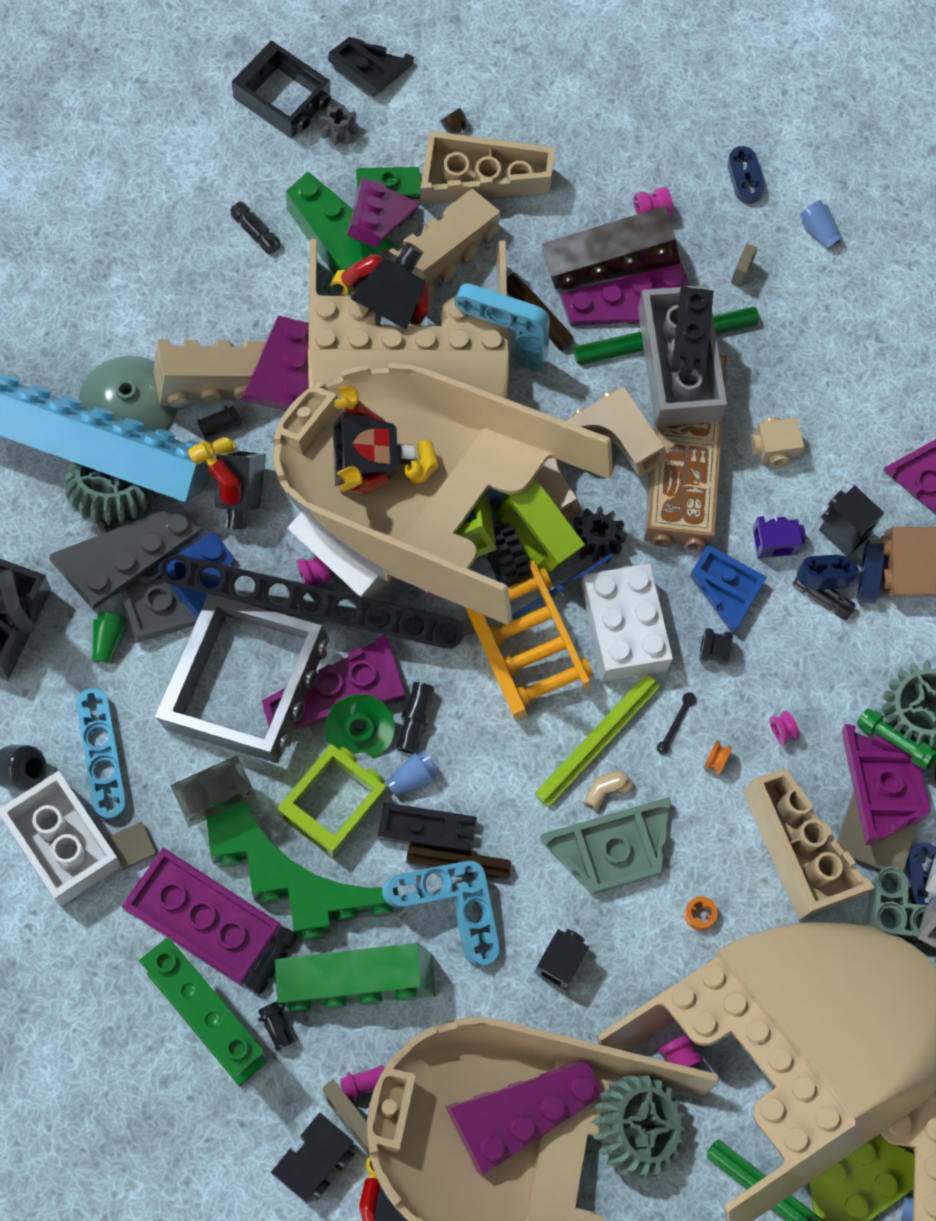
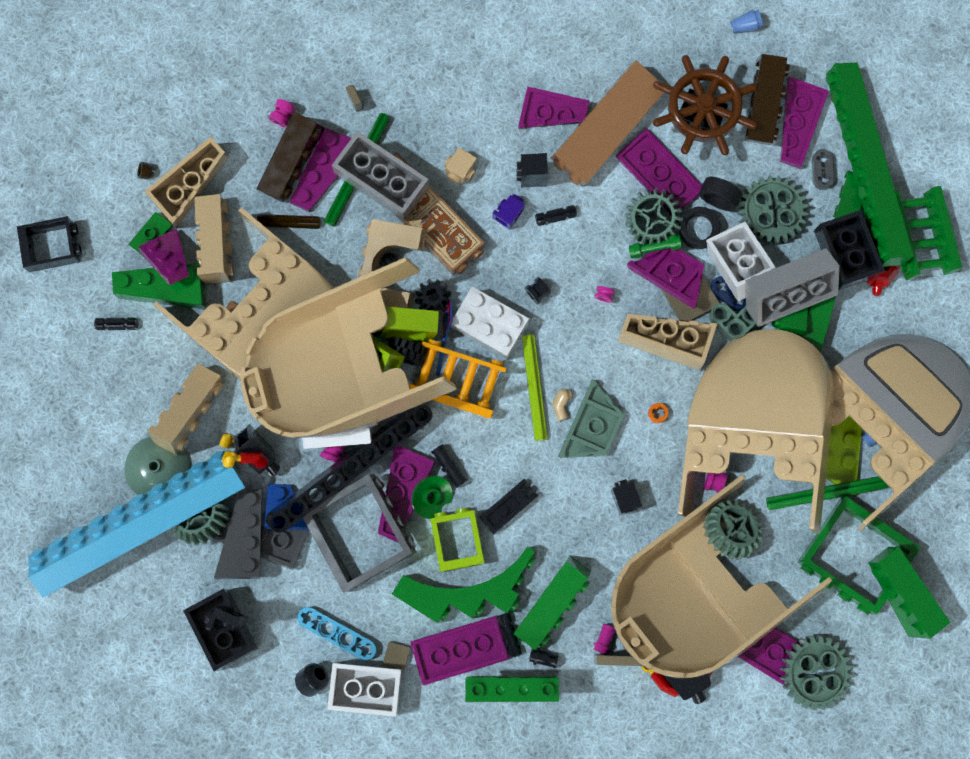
camera: 40 degrees left, 10 degrees up
(107, 634) = (278, 582): green cone -> none
(212, 791) = (407, 597): clear smoke brick -> none
(219, 422) = (210, 432): black pin -> none
(282, 366) = (215, 380): magenta wing -> none
(309, 1167) = (623, 697): black brick -> none
(339, 124) = (99, 237): dark grey gear -> none
(365, 446) = (299, 377): torso -> none
(368, 64) = (72, 186): black wing -> none
(389, 285) = (217, 289): black torso -> none
(412, 774) = (476, 490): medium blue cone -> none
(424, 468) = (333, 354): yellow arm -> none
(433, 857) = (537, 505): dark brown axle -> none
(463, 895) = (556, 518): medium azure beam -> none
(511, 1118) = (682, 588): magenta wing -> none
(527, 320) = (299, 236): medium azure beam -> none
(688, 700) = (551, 326): black hinge -> none
(692, 328) = (375, 160): black hinge -> none
(717, 757) = (592, 338): orange bush -> none
(727, 585) = (511, 257): blue wing -> none
(739, 177) = (307, 47): dark blue beam -> none
(821, 224) = (365, 39): medium blue cone -> none
(827, 572) = (543, 202): dark blue beam -> none
(870, 572) = (564, 183): dark blue beam -> none

